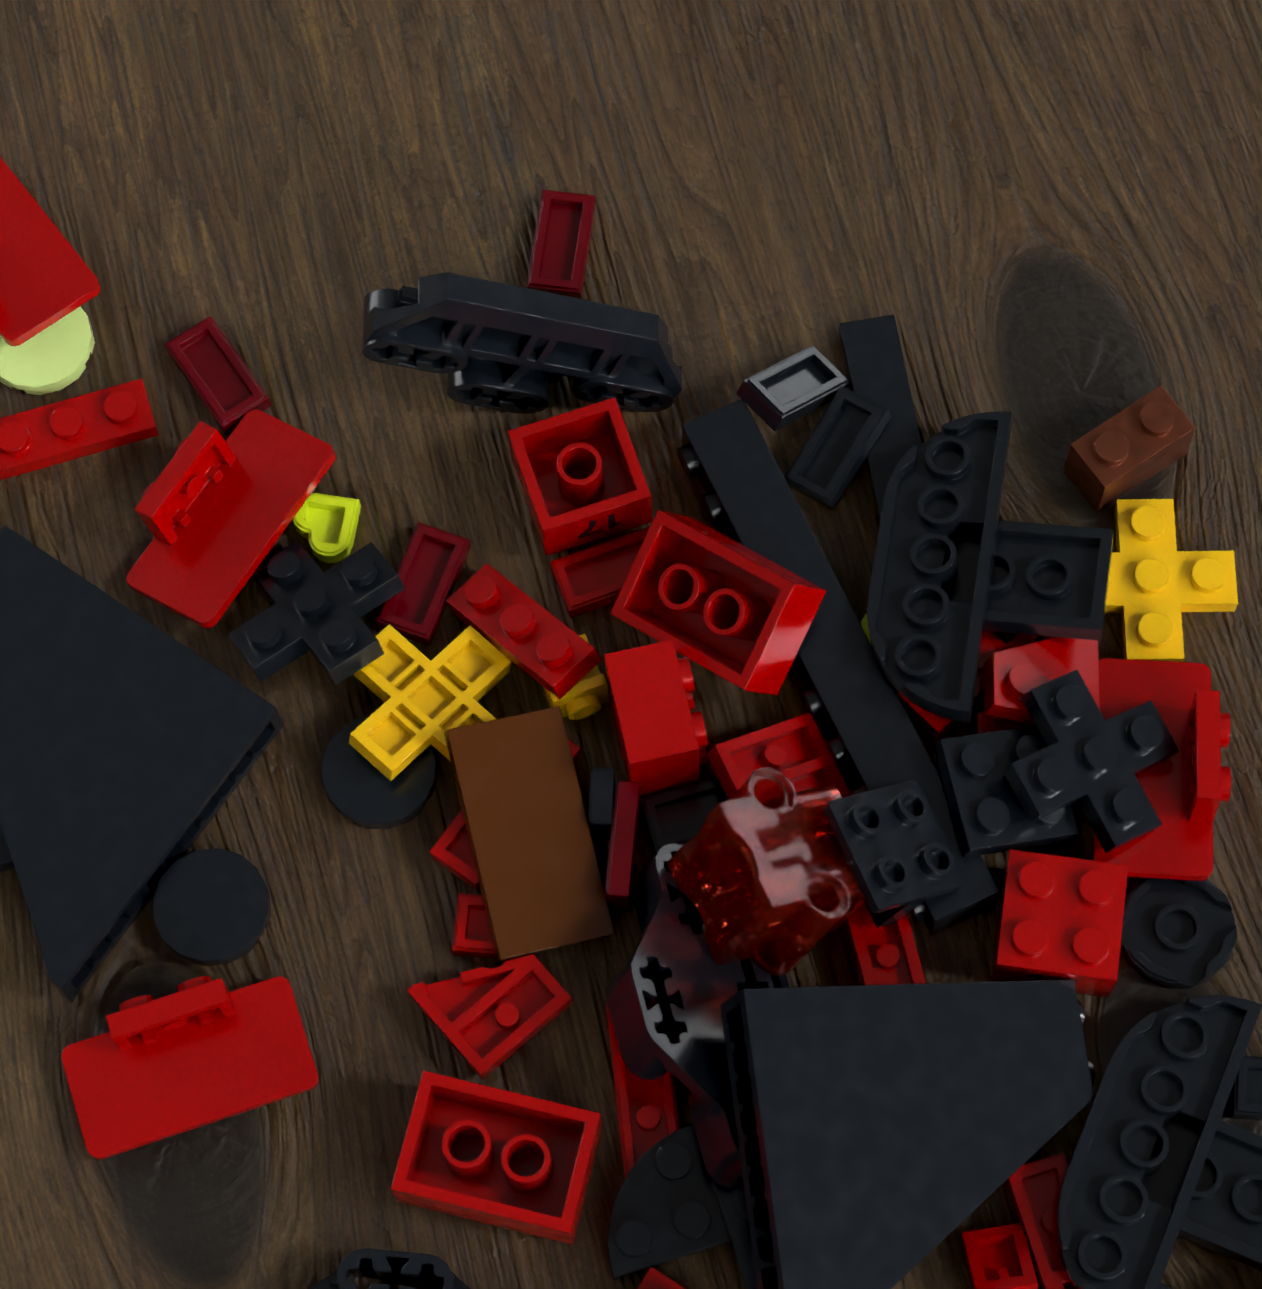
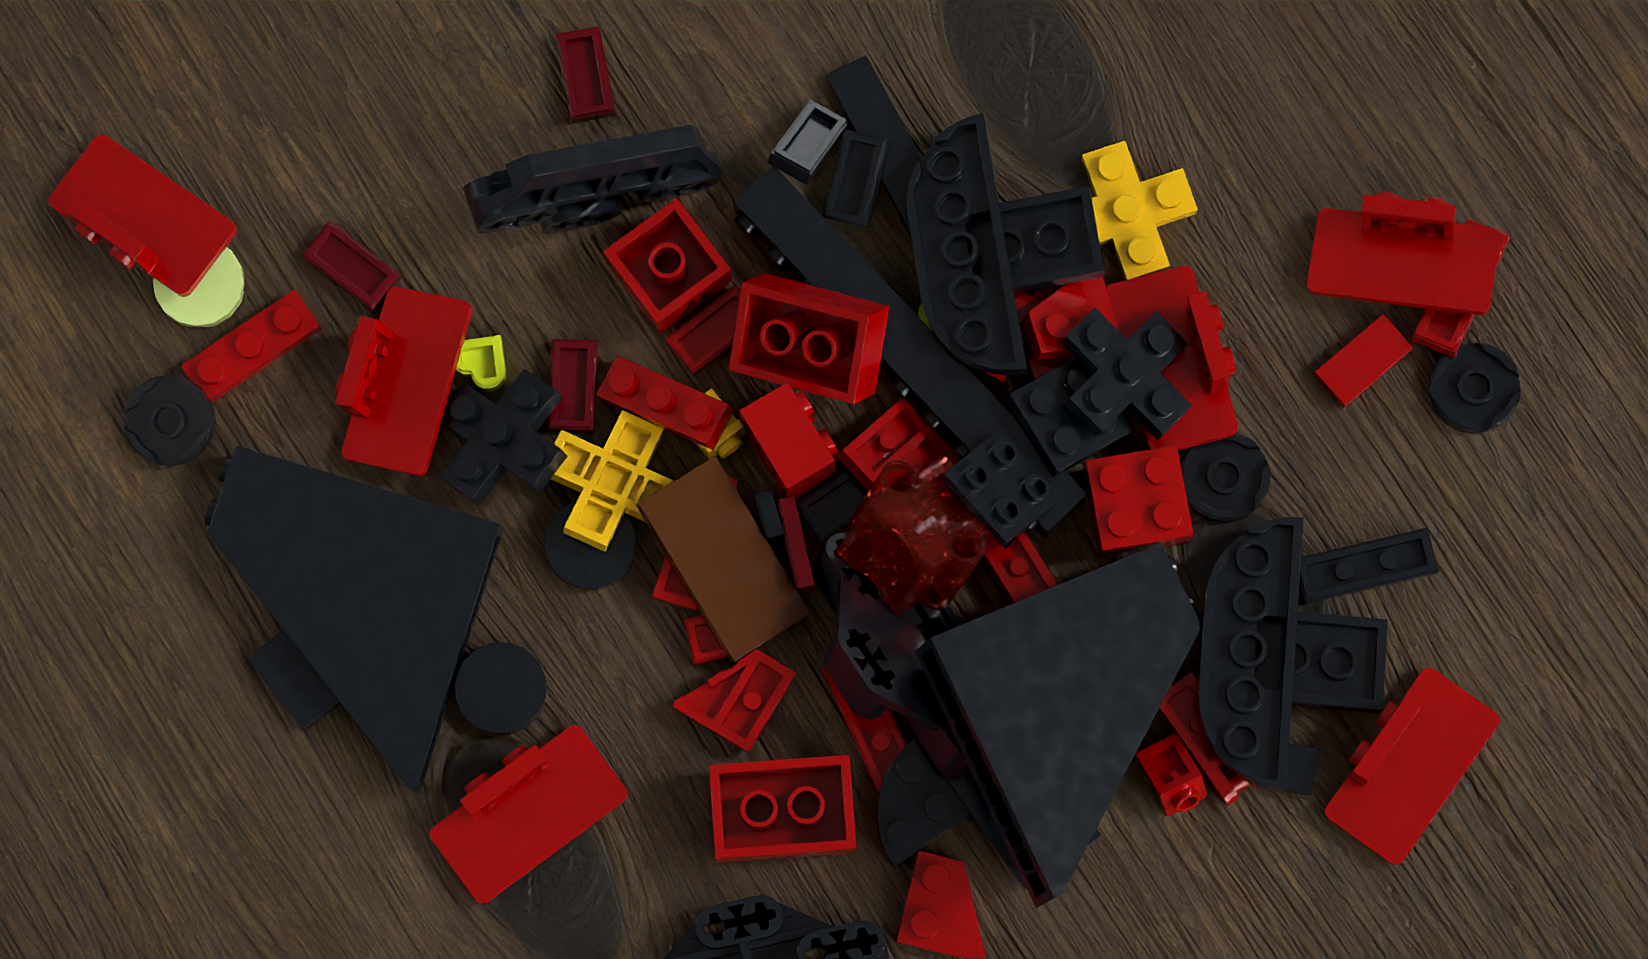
camera: 20 degrees left, 10 degrees up
(1129, 448) = (1080, 112): copper brick -> none

